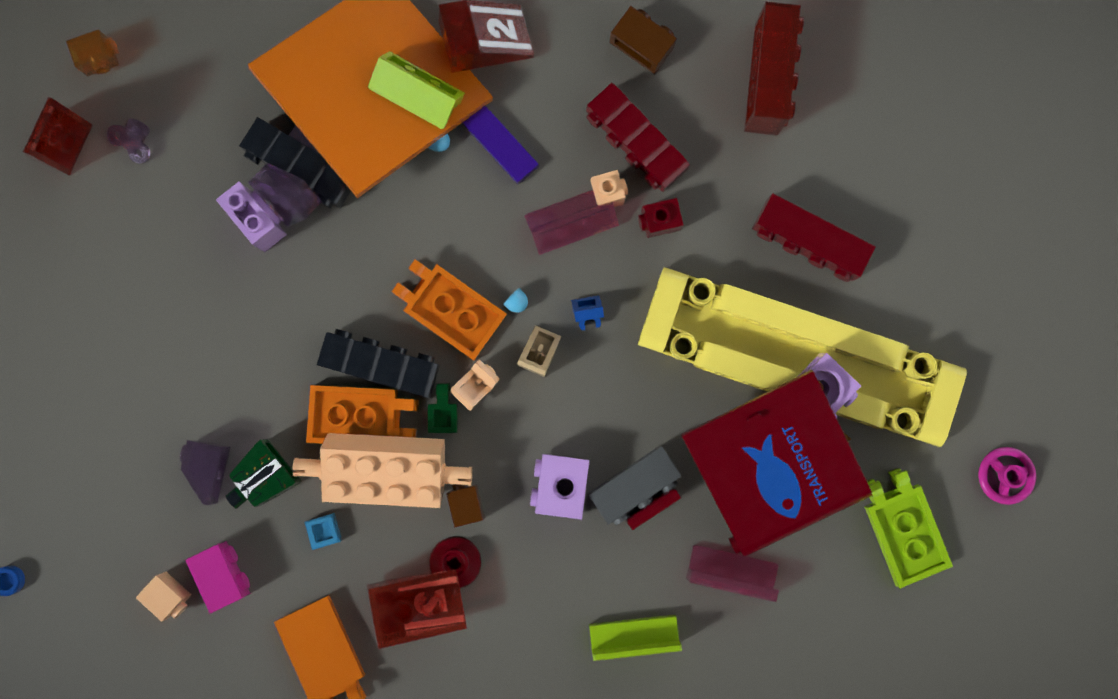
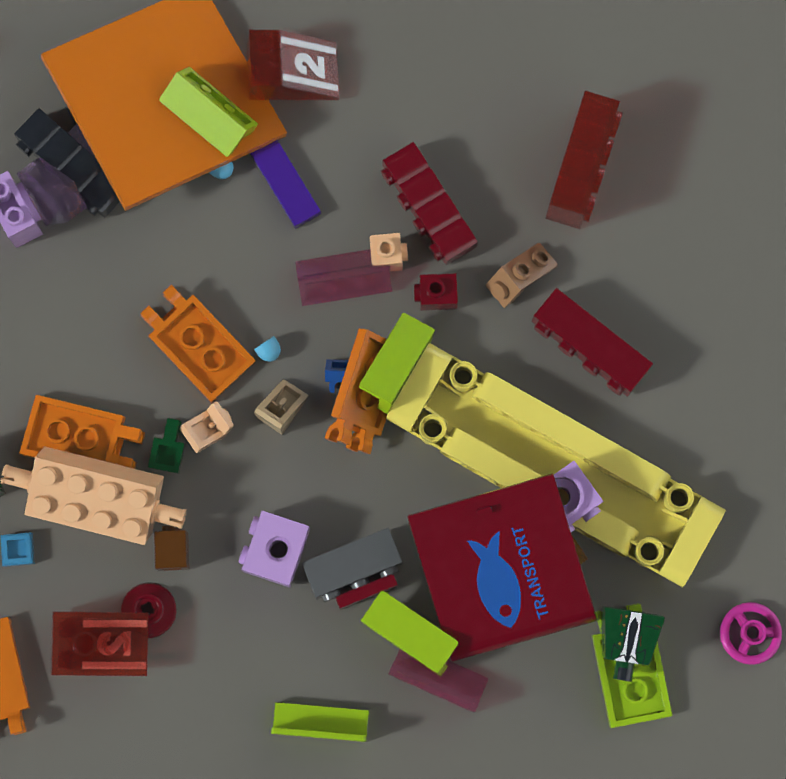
camera: 15 degrees right, 5 degrees down
(378, 364) = (112, 387): black brick -> none
(615, 323) = (353, 406): none -> orange tile
(638, 289) = (396, 360): none -> lime panel
(643, 39) = (456, 102): reddish brown piece -> none
(702, 540) = (410, 632): none -> lime panel
(733, 187) = (520, 273): none -> medium nougat bracket
(905, 506) = (629, 638): none -> dark green torso

